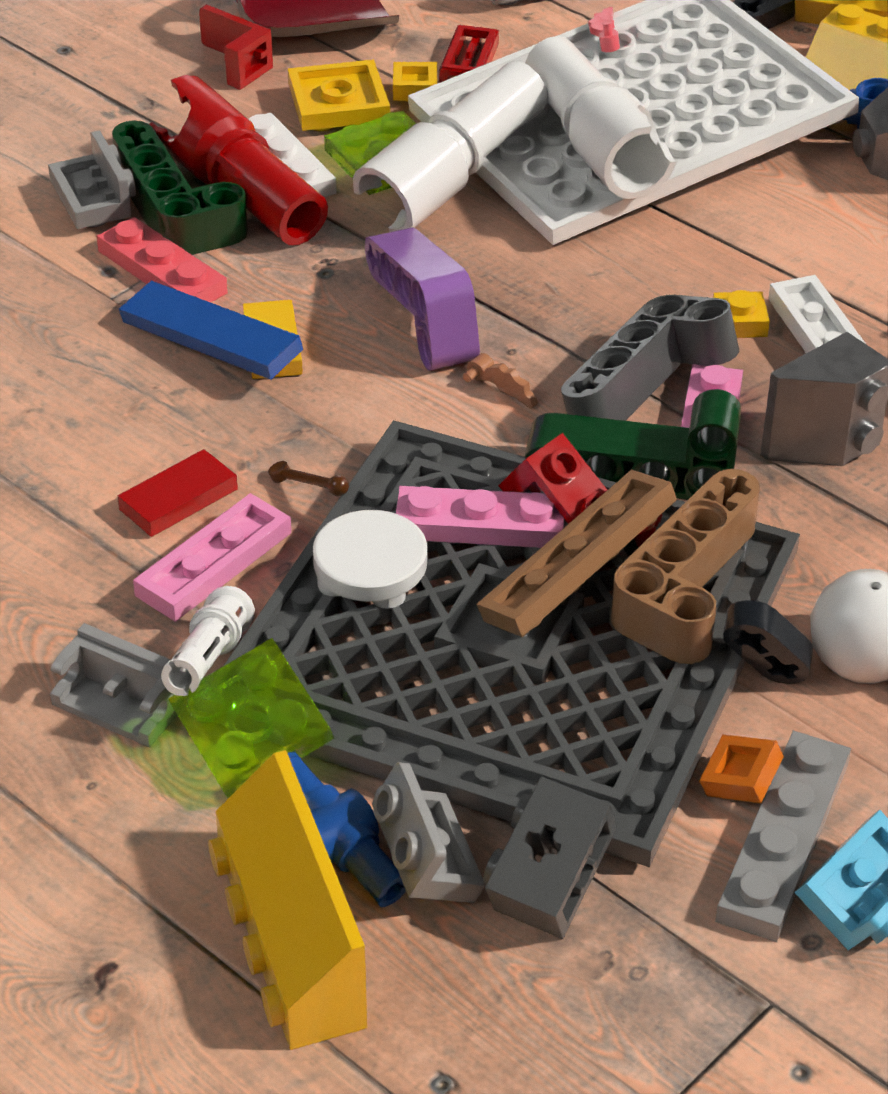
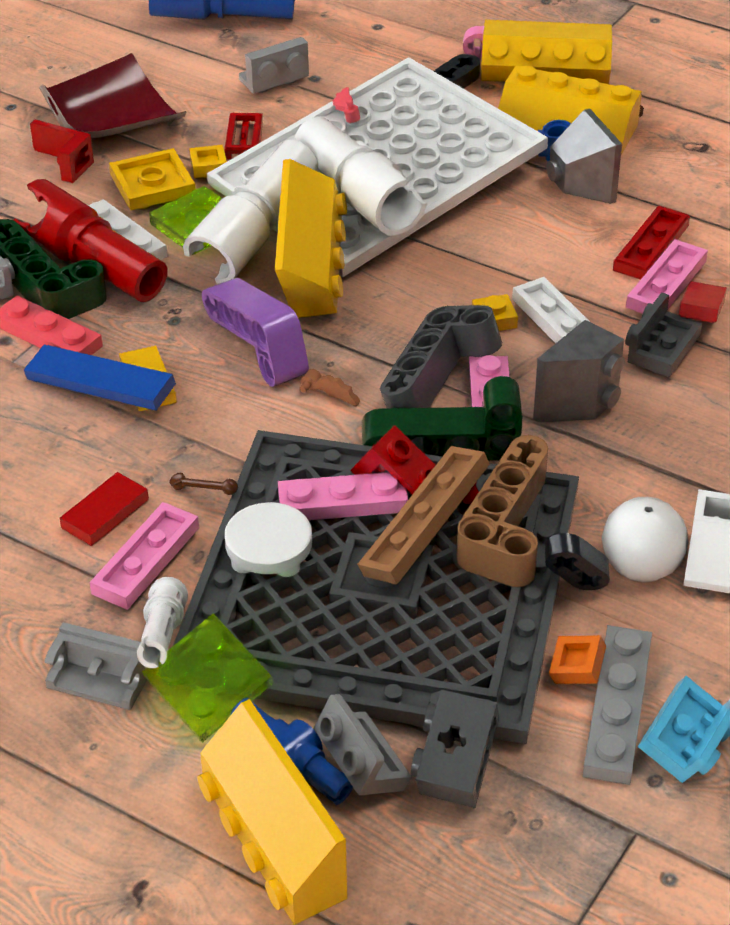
camera: 10 degrees left, 0 degrees up
(513, 190) = (310, 240): none -> yellow slope

